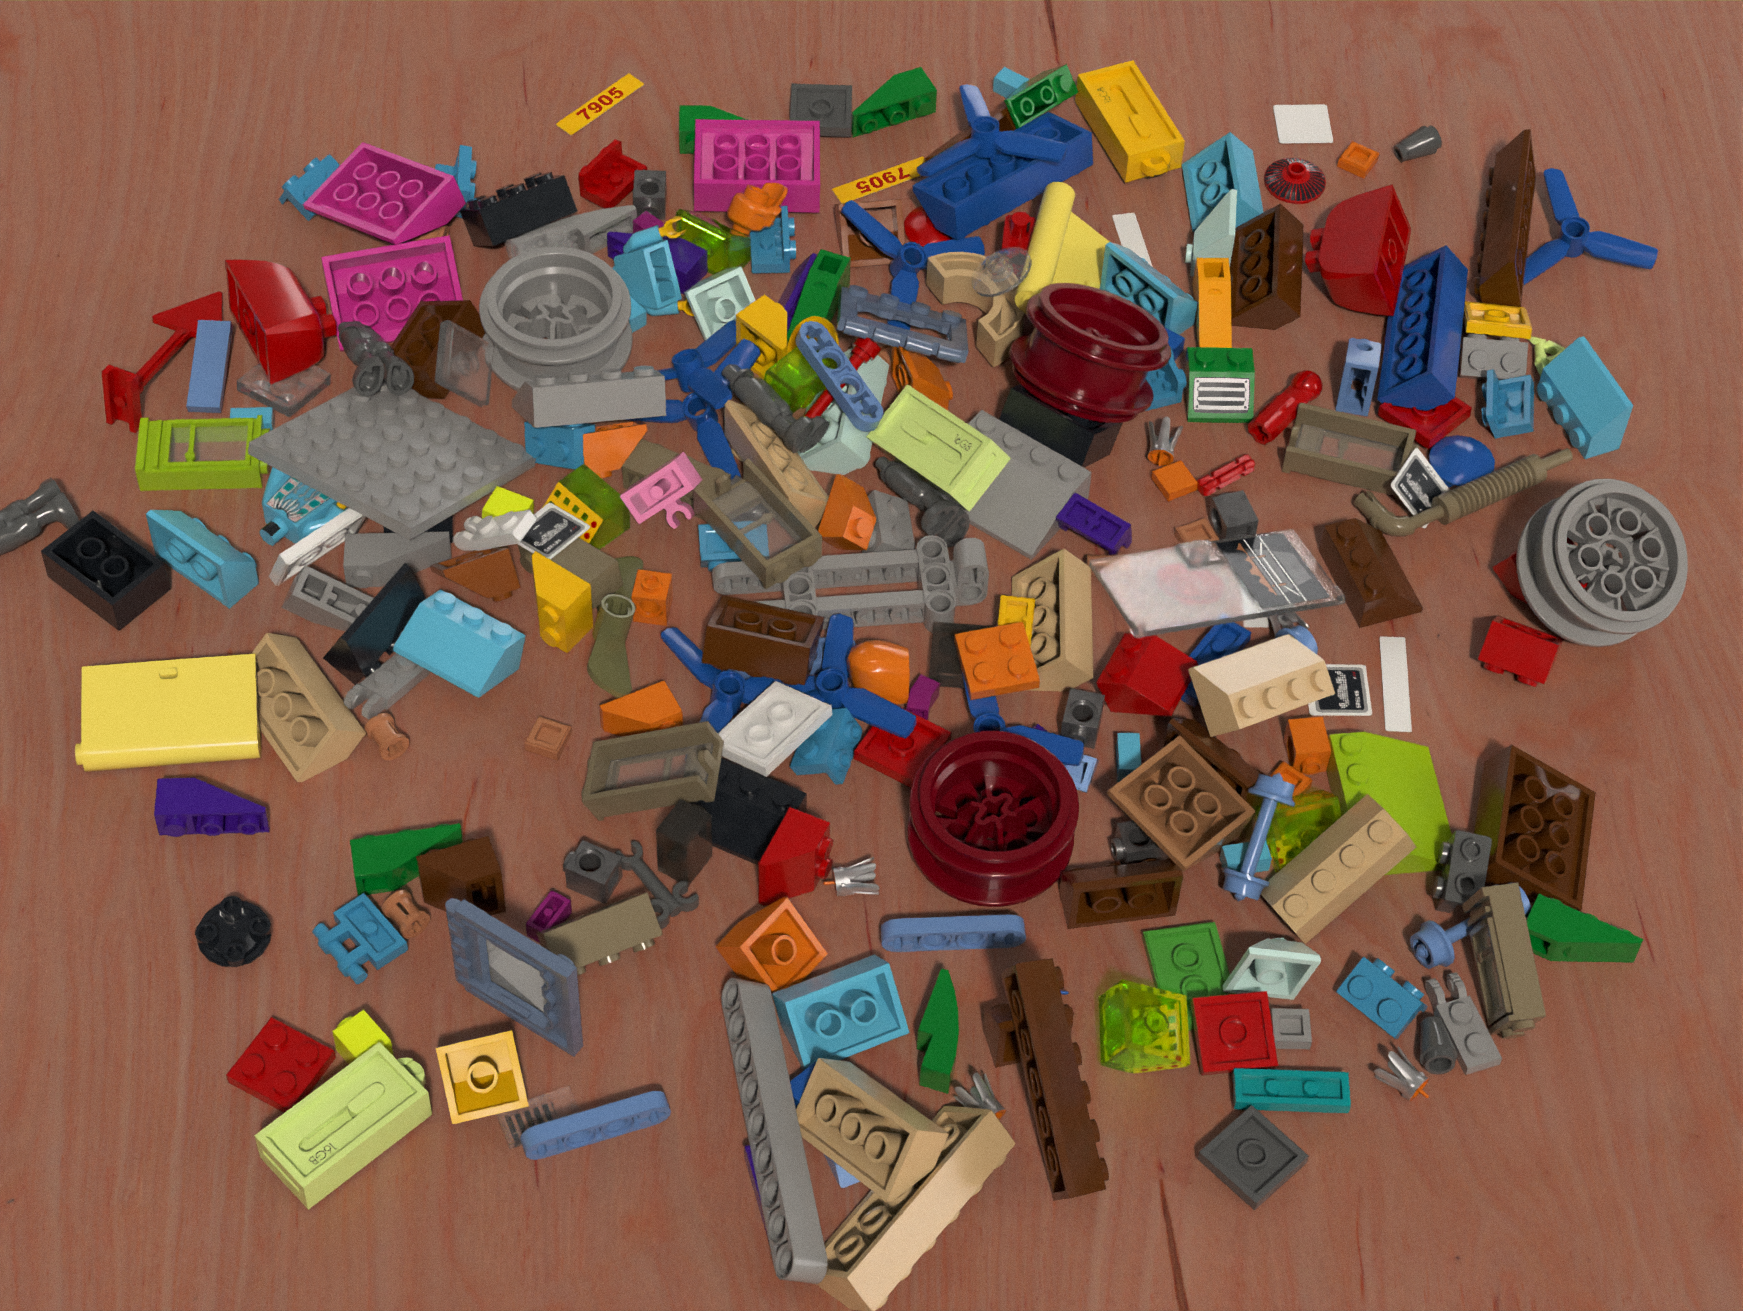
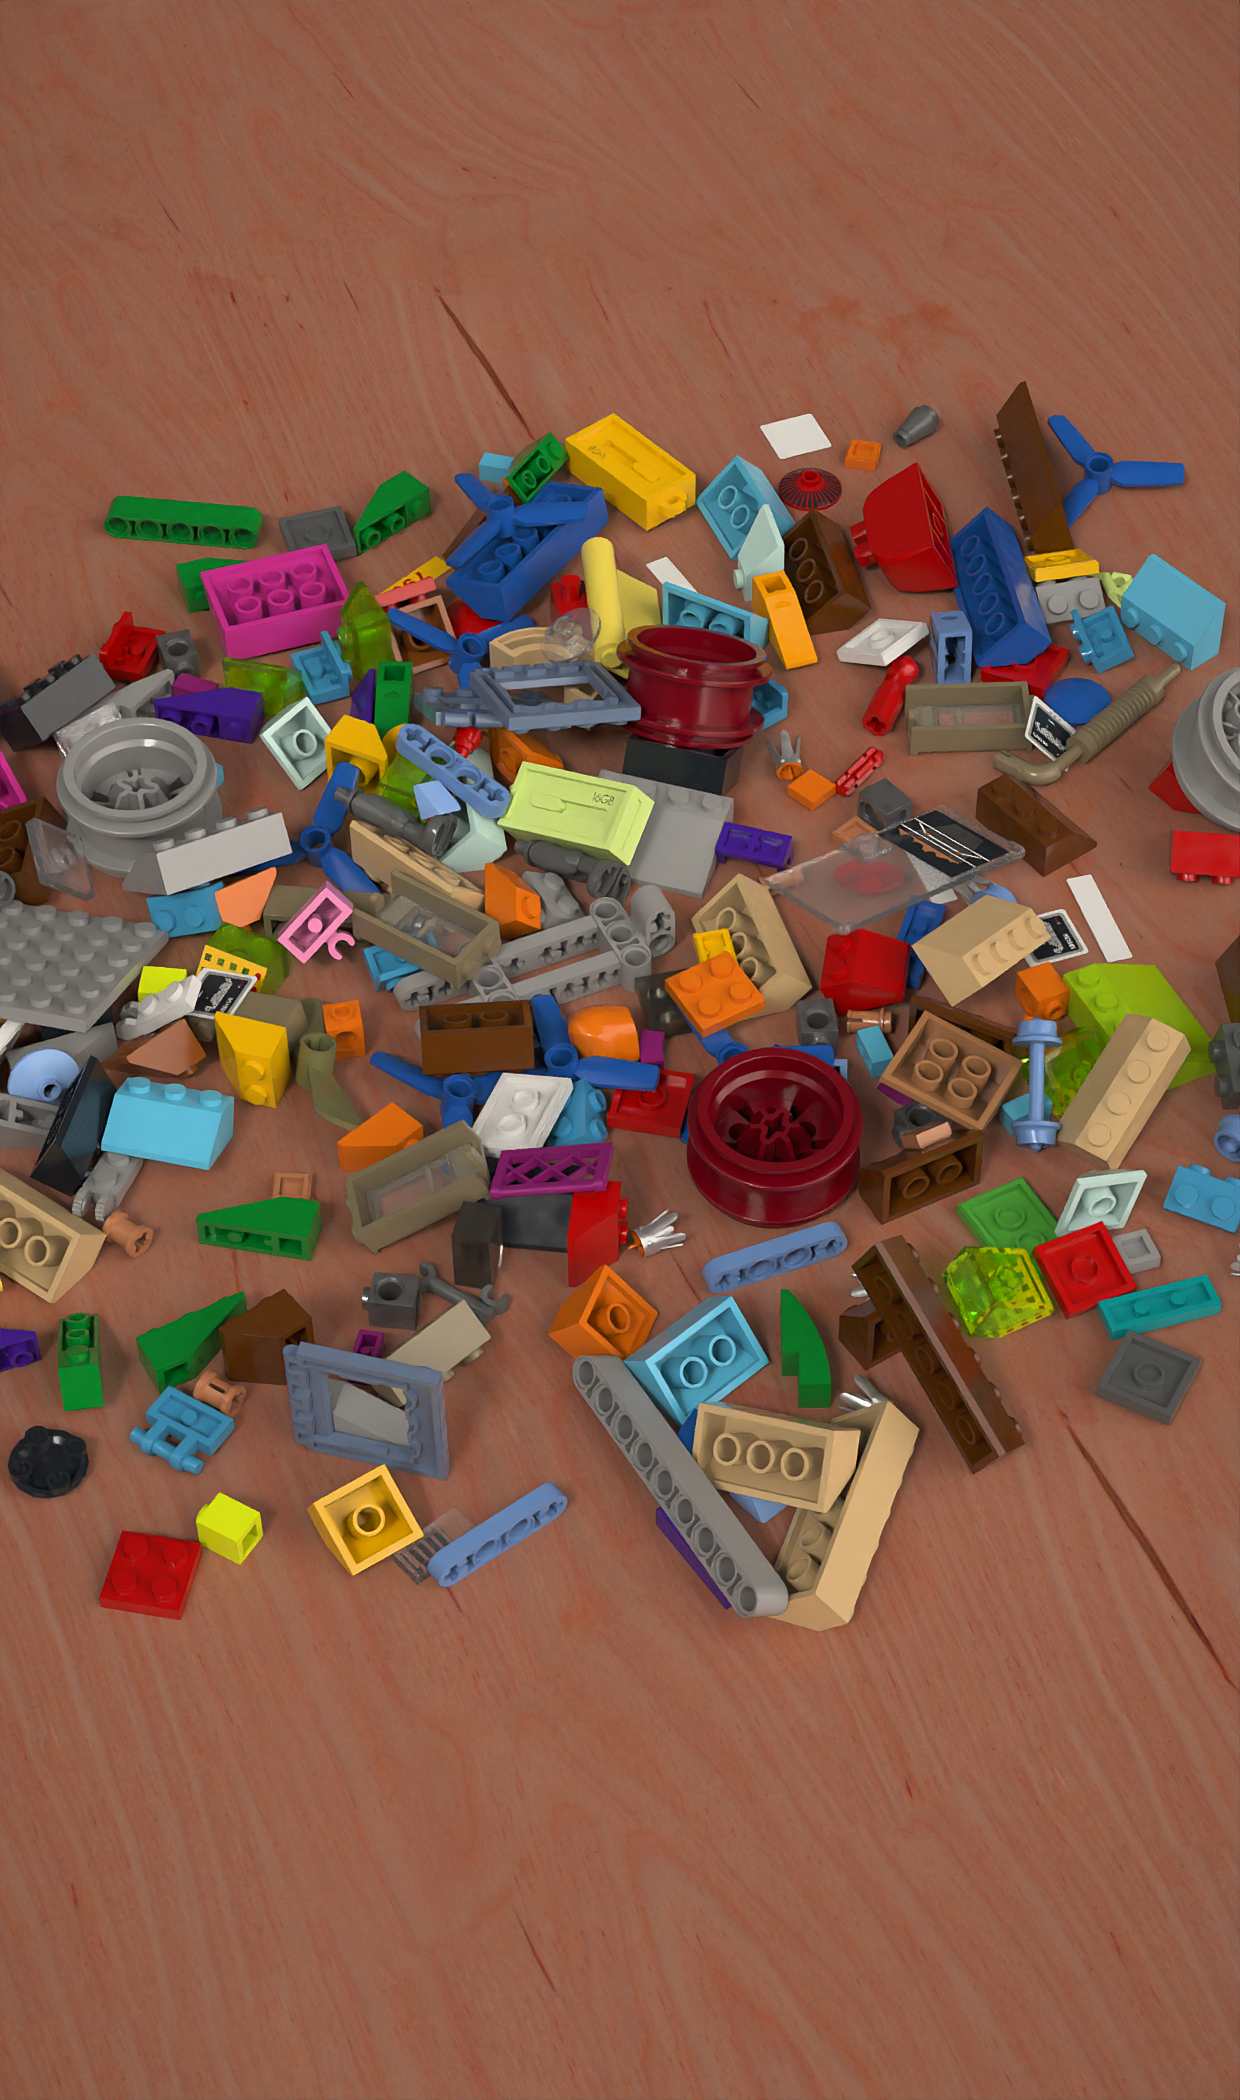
camera: 15 degrees left, 5 degrees down
(297, 846) = (80, 1362): none -> green slope
(345, 1123) = (244, 1606): yellowish green piece -> none
(364, 561) = (40, 1069): none -> light blue dish
(509, 766) = (268, 1227): none -> green slope
(599, 104) = (87, 587): yellow sticker -> none
(650, 270) = (216, 722): medium azure torso -> none
(692, 365) = (300, 810): blue piece -> none
(707, 65) = (183, 522): none -> green beam
(756, 207) = (297, 639): orange head -> none
(763, 775) = (538, 1156): none -> magenta window
(812, 399) = (434, 799): none -> light blue slope
(819, 216) = (364, 632): none -> clear neon green slope
(876, 189) = (406, 594): none -> plate
(942, 349) = (492, 684): none -> sand blue hinge
(1134, 857) = (926, 1135): none -> nougat tile
(1146, 727) = (869, 1019): none -> nougat pin
(1219, 385) = (820, 690): green slope -> none
(1297, 352) = (882, 642): none -> white tile

